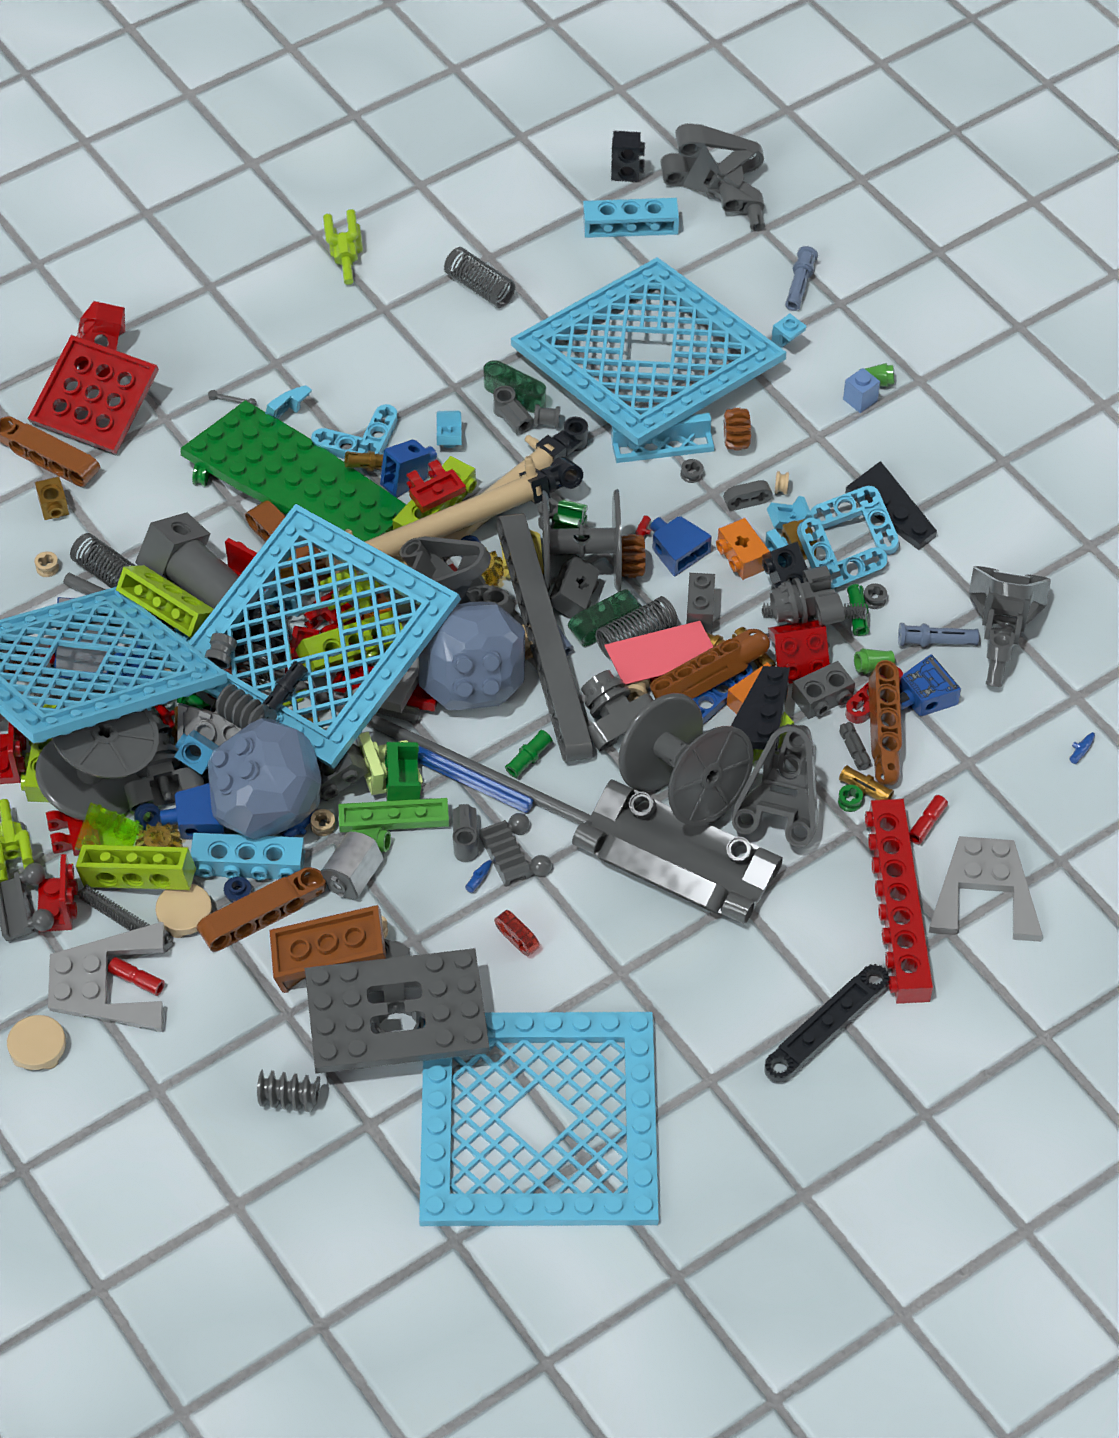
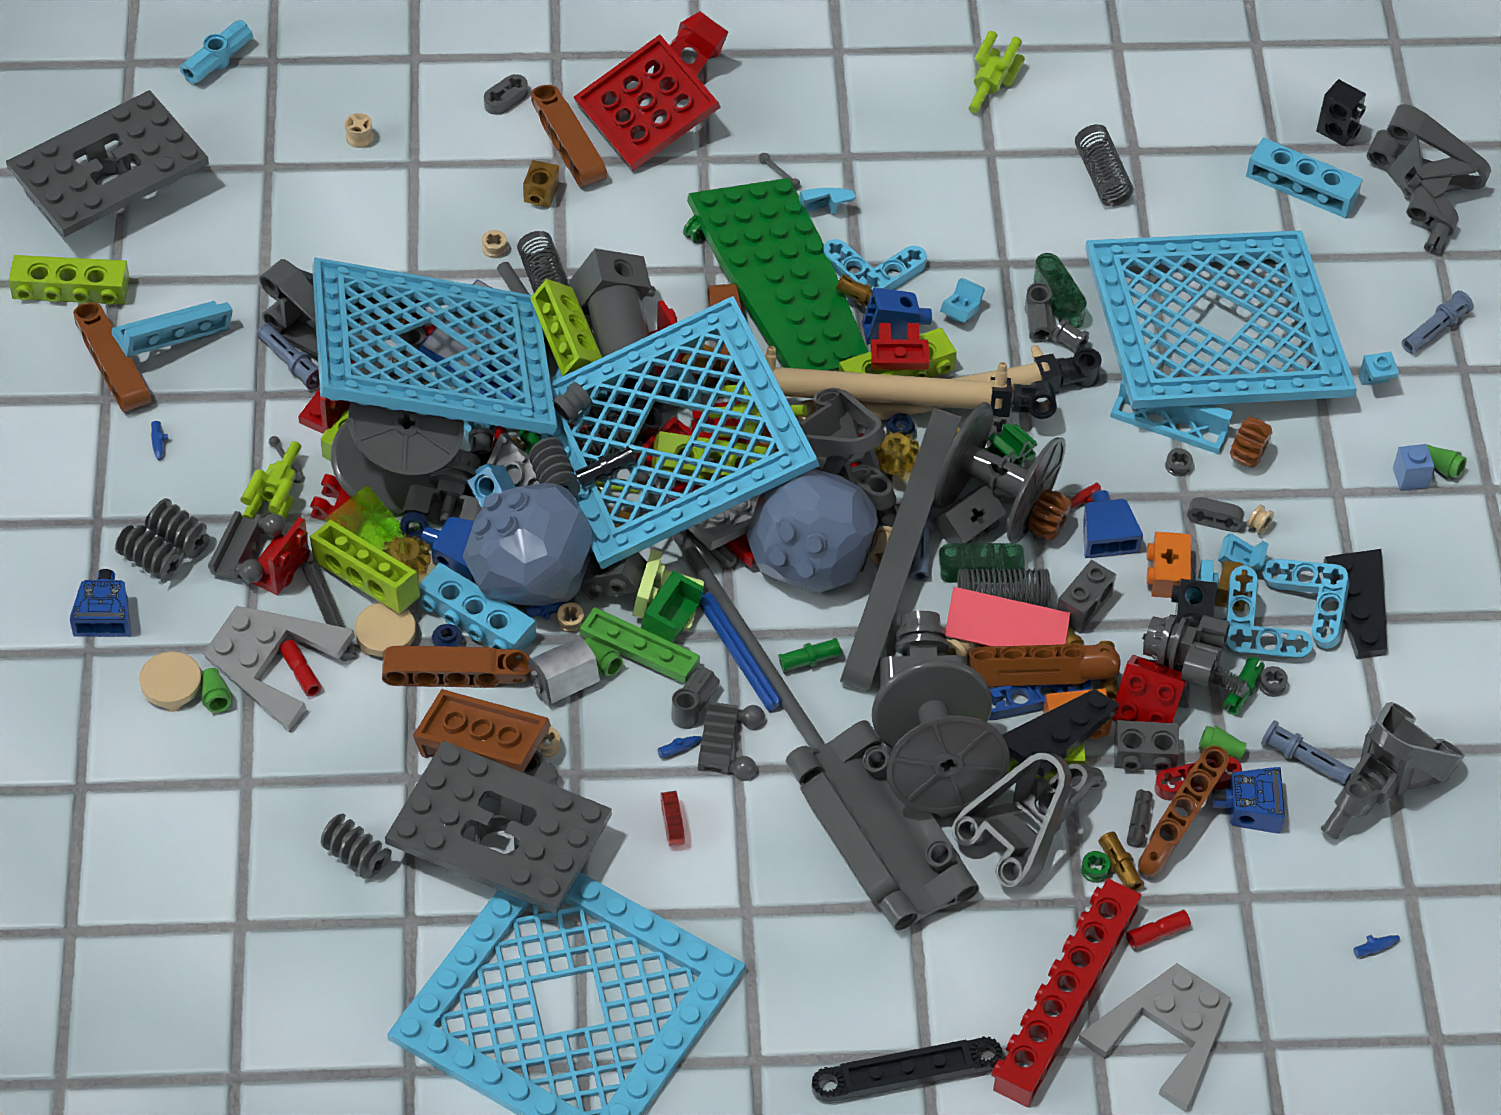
camera: 30 degrees right, 0 degrees up
(82, 1033) = (215, 693): none -> bright green cone

